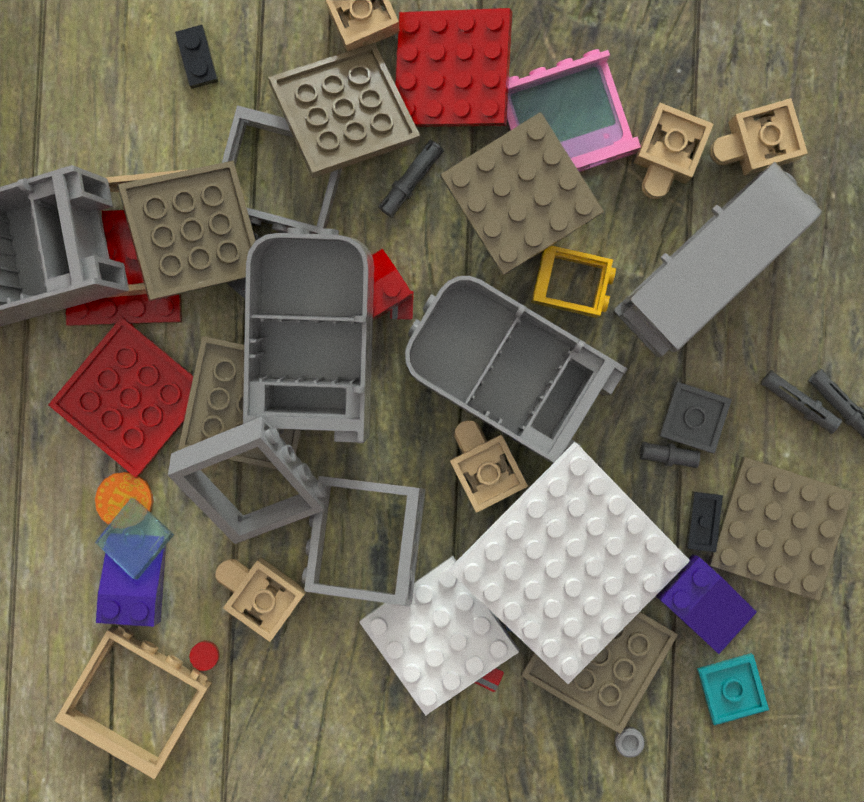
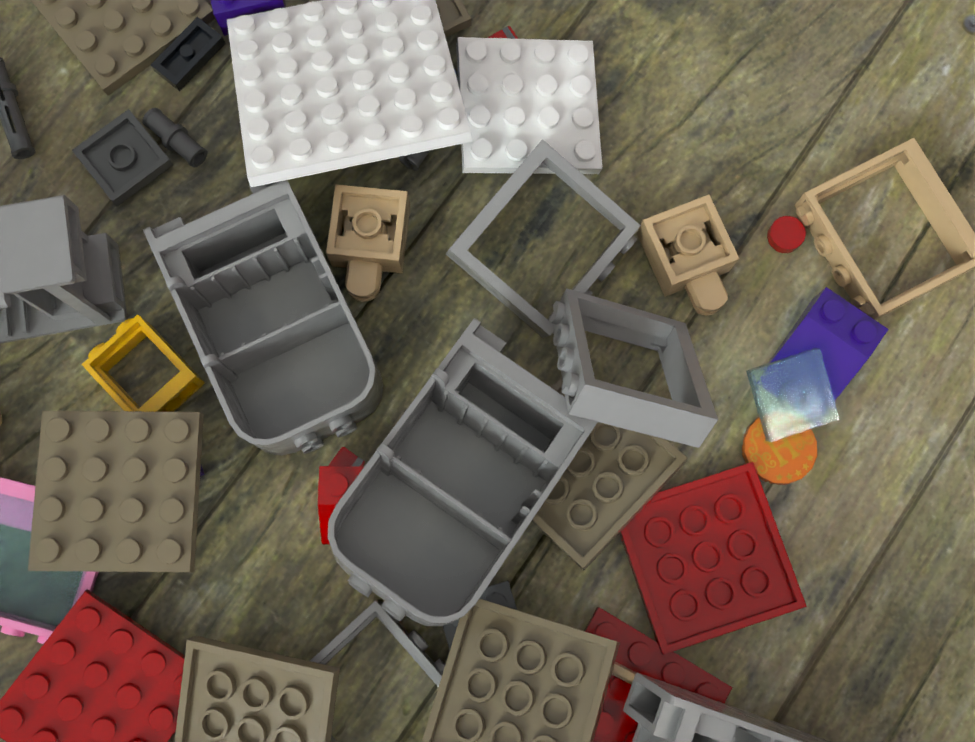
camera: 145 degrees left, 10 degrees down
(406, 184) = (235, 602): dark grey pin -> none

